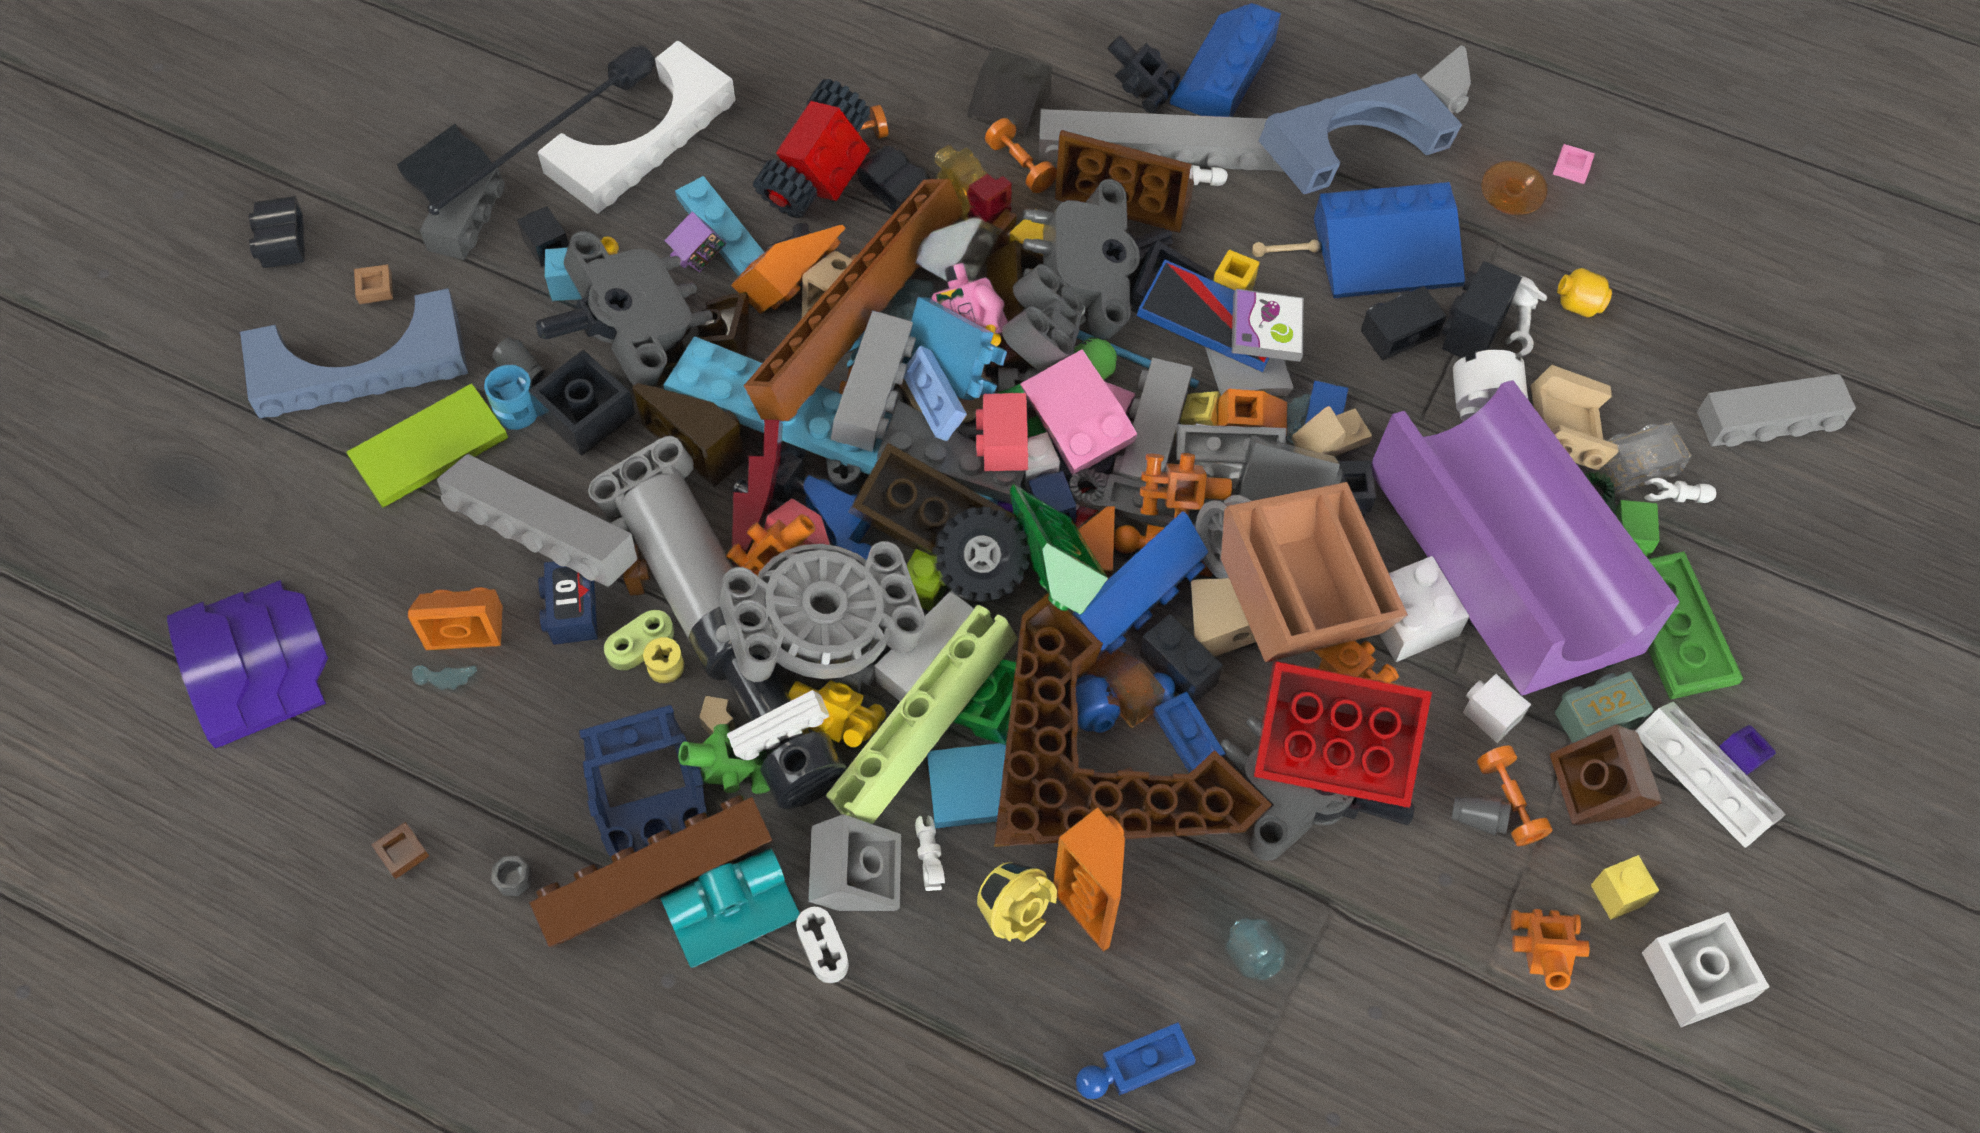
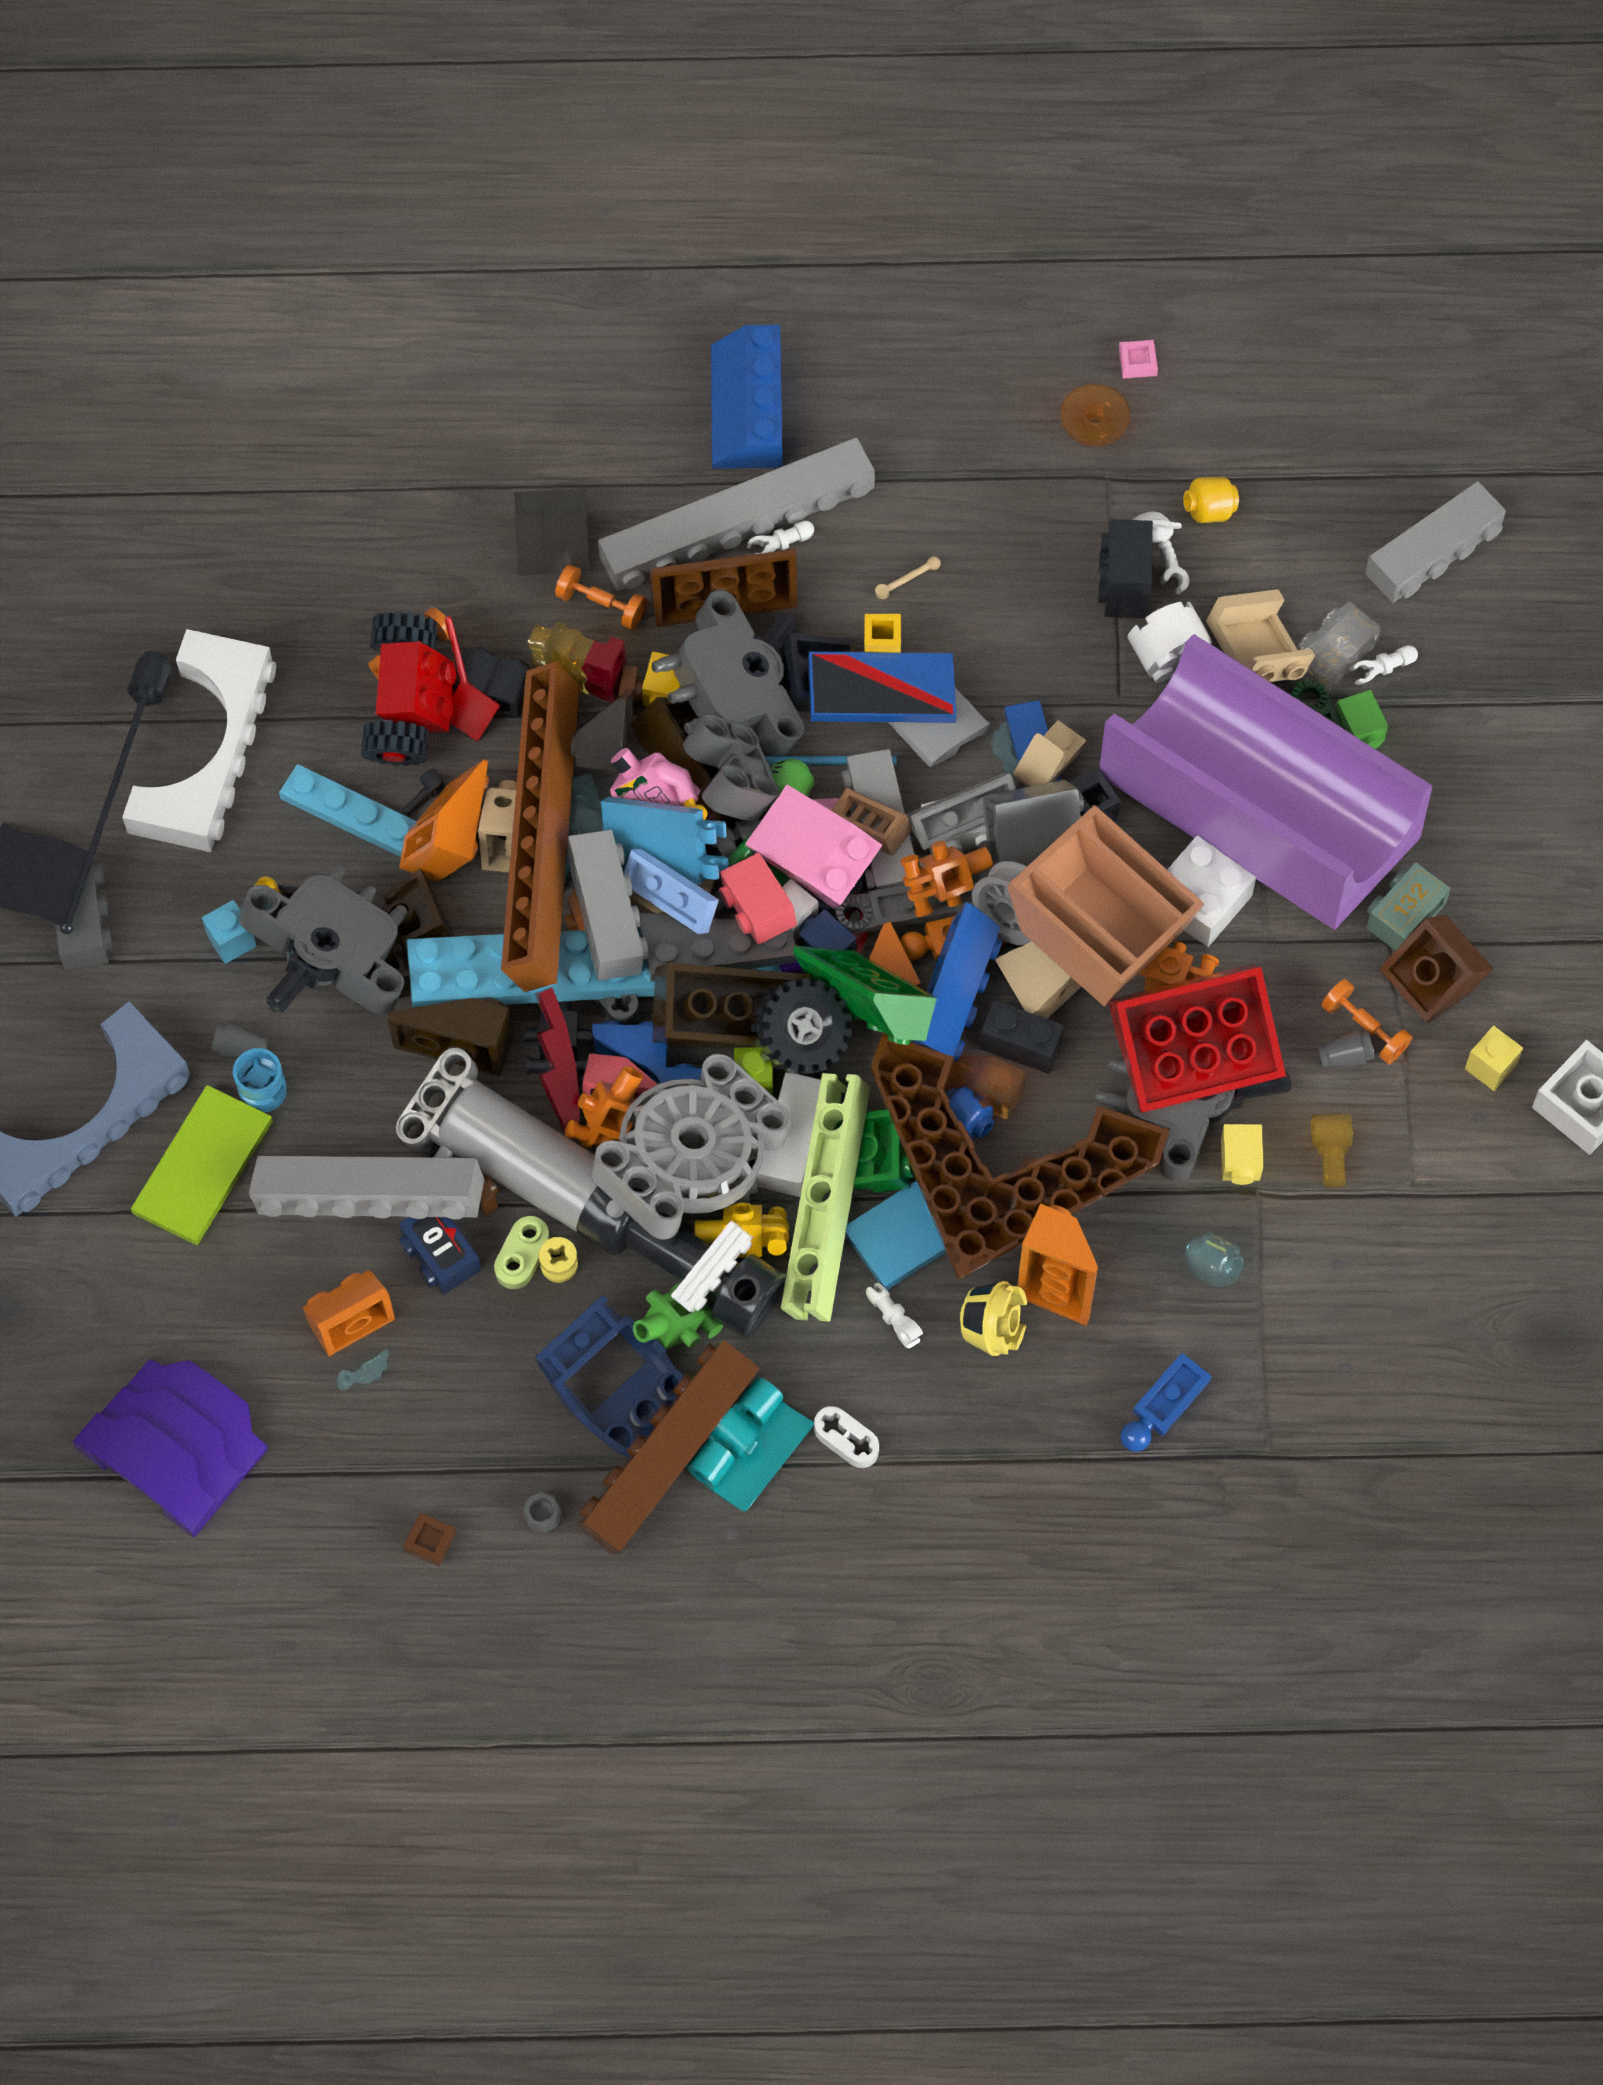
camera: 25 degrees left, 5 degrees up
(373, 284) = (41, 1030): medium nougat plate -> none
(541, 232) = (179, 902): black brick -> none
(582, 402) = (332, 1053): black brick -> none
(695, 242) = (337, 840): medium lavender brick -> none
(716, 712) = (636, 1287): tan piece -> none
(854, 866) = (837, 1357): light grey slope -> none
(864, 189) = (471, 707): none -> red piece
(1144, 73) = (674, 450): black piece -> none
(1154, 433) = (889, 833): none -> medium nougat slope
(1184, 725) = (1057, 1097): blue plate -> none
(1200, 409) = (918, 785): light yellow slope -> none
(1251, 409) = (964, 769): orange slope -> none
(1267, 325) = (939, 675): tile -> none
(1333, 860) = (1242, 1153): none -> light yellow brick
(1390, 239) = (1004, 526): blue slope -> none
(1401, 106) = (945, 375): sand blue arch -> none
(1403, 322) = (1057, 608): black brick -> none
(1428, 888) = (1332, 1137): none -> clear yellow pin
(1451, 80) = (978, 328): light grey slope -> none
(1495, 707) = (1314, 949): white brick -> none
(1549, 944) = (1453, 1137): orange piece -> none
(1690, 645) = (1459, 813): bright green tile -> none
(1709, 774) = (1520, 921): white fence -> none
(1747, 749) = (1543, 886): dark purple slope -> none

